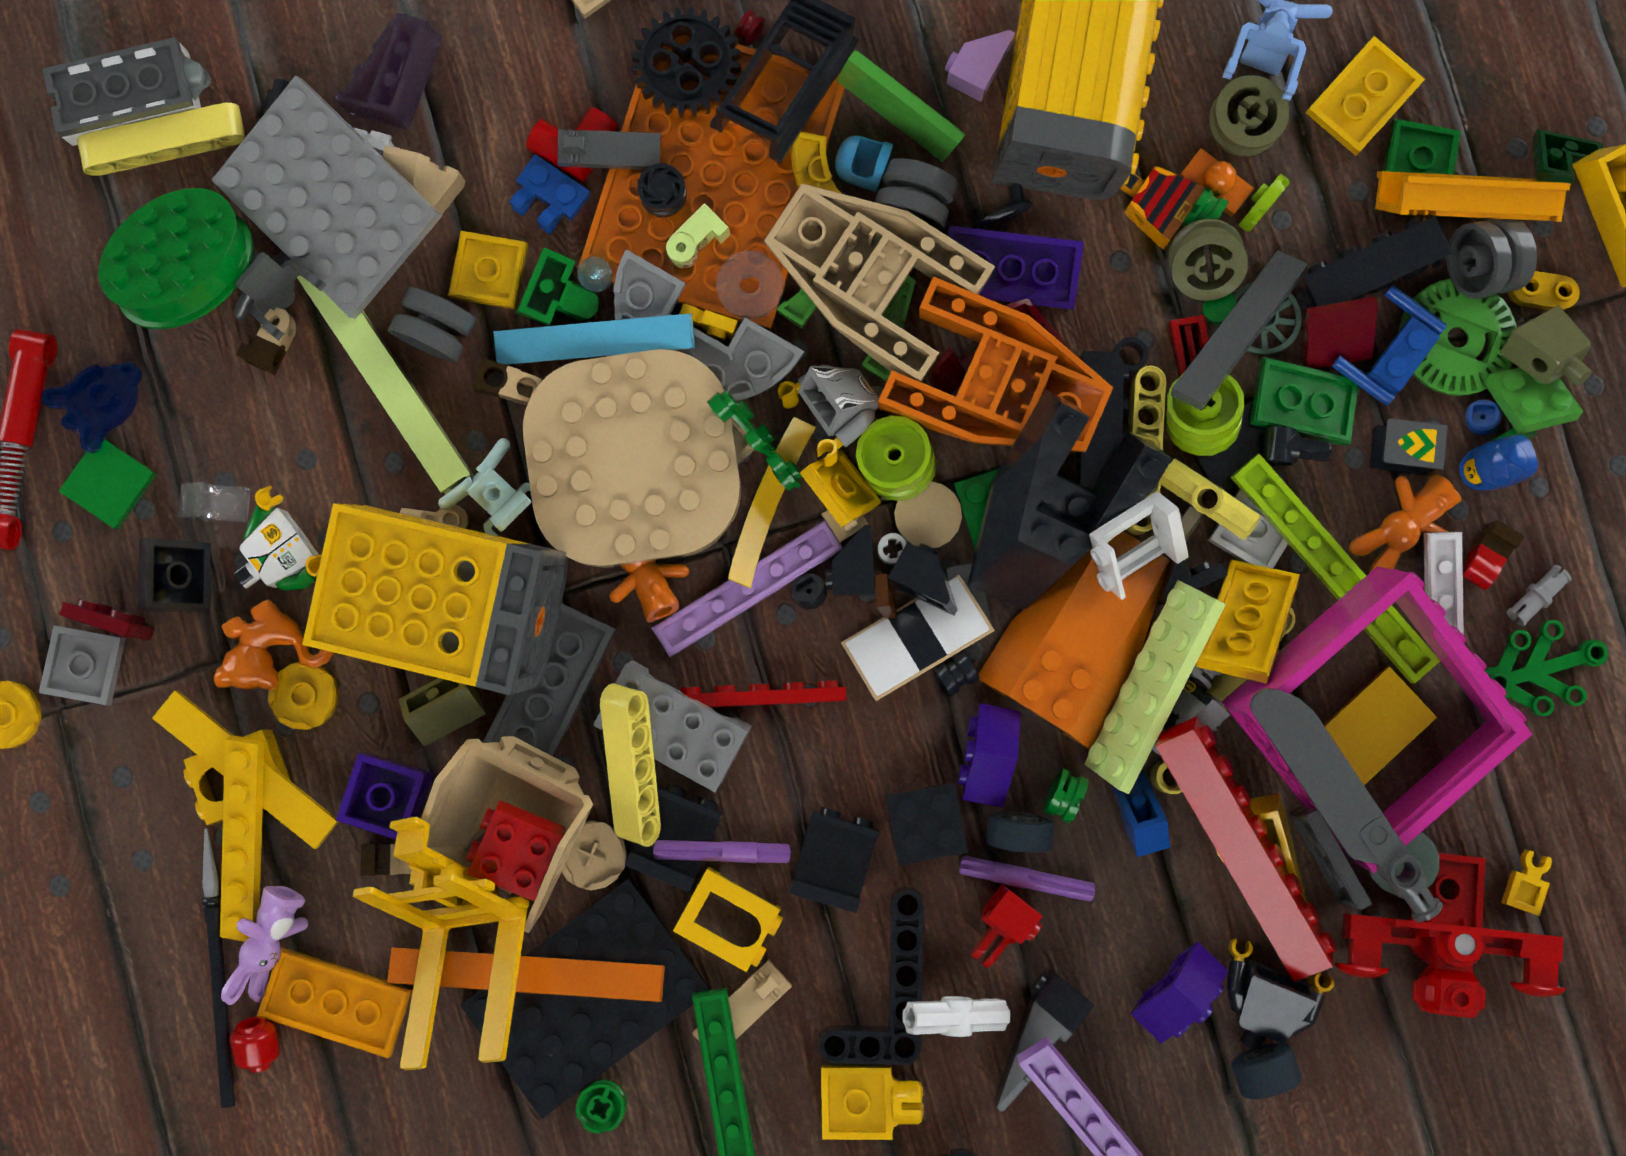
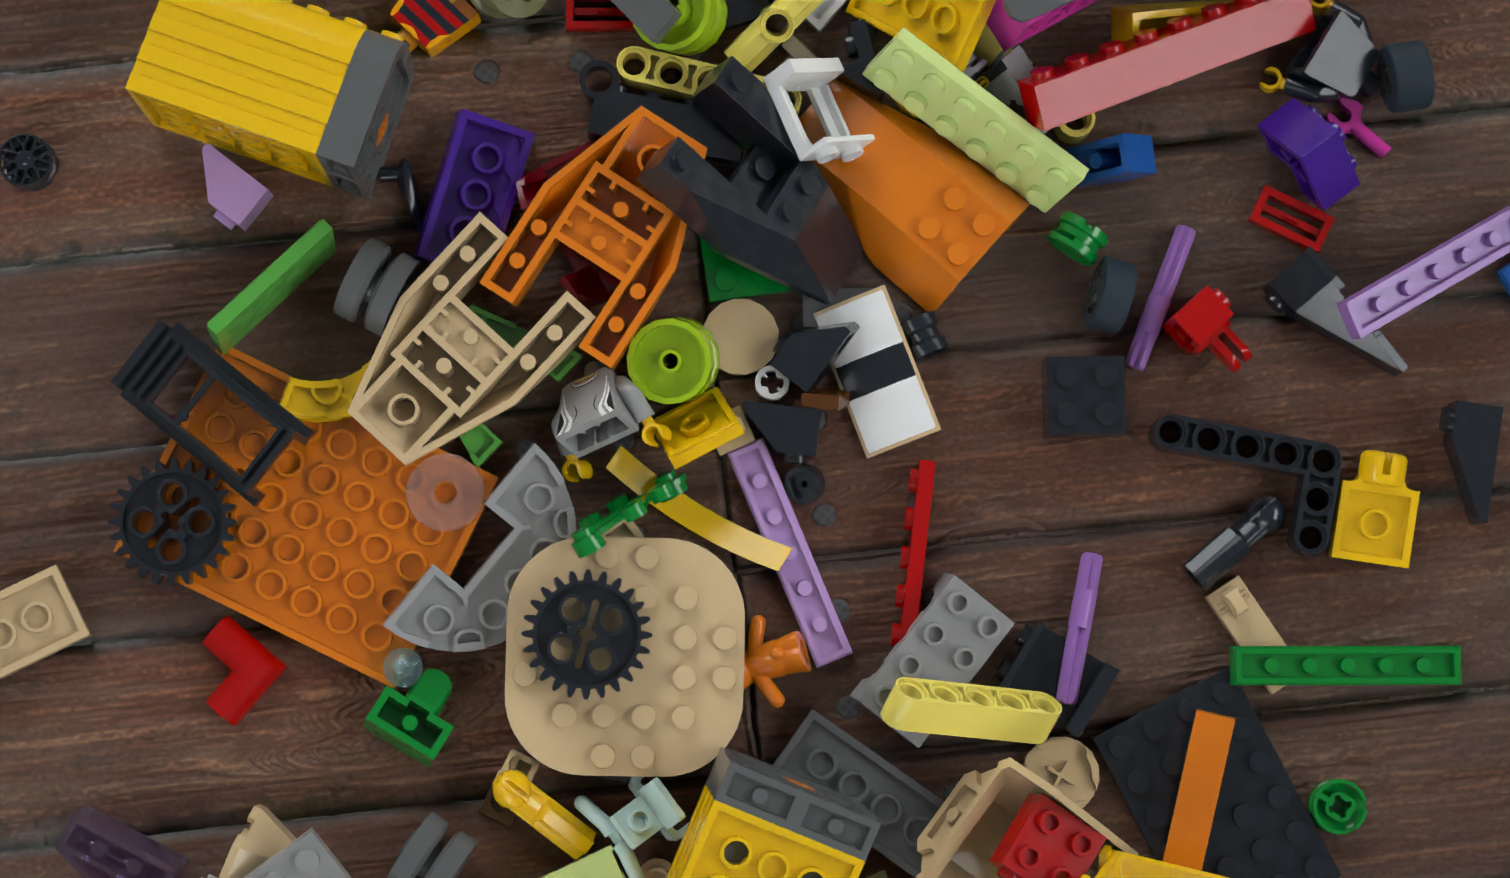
camera: 90 degrees left, 0 degrees up
(488, 270) = (371, 792): yellow tile -> none
(488, 412) = (543, 813): none -> yellow piece
(552, 188) = (289, 702): blue plate -> none
(594, 339) = (478, 680): medium azure tile -> none
(608, 149) = (260, 627): dark grey hinge -> none
(646, 386) = (621, 644): none -> black gear
(662, 190) = (319, 574): black wheel -> none
(694, 236) = (387, 558): yellowish green leg -> none
(716, 325) = (485, 538): yellow plate -> none
(750, 27) = (140, 444): dark red bush -> none
(763, 910) = (1153, 590): yellow panel -> none
(818, 977) = (1232, 544): none -> black piece
(834, 859) = (1107, 505): black panel -> none
(862, 162) = (325, 340): dark azure helmet -> none
(956, 1016) = (1298, 399): white piece -> none
(990, 755) = (1021, 312): dark purple brick -> none
(1131, 988) = (1296, 205): none -> red tile
(1210, 1034) = (1357, 128): none -> dark pink bar

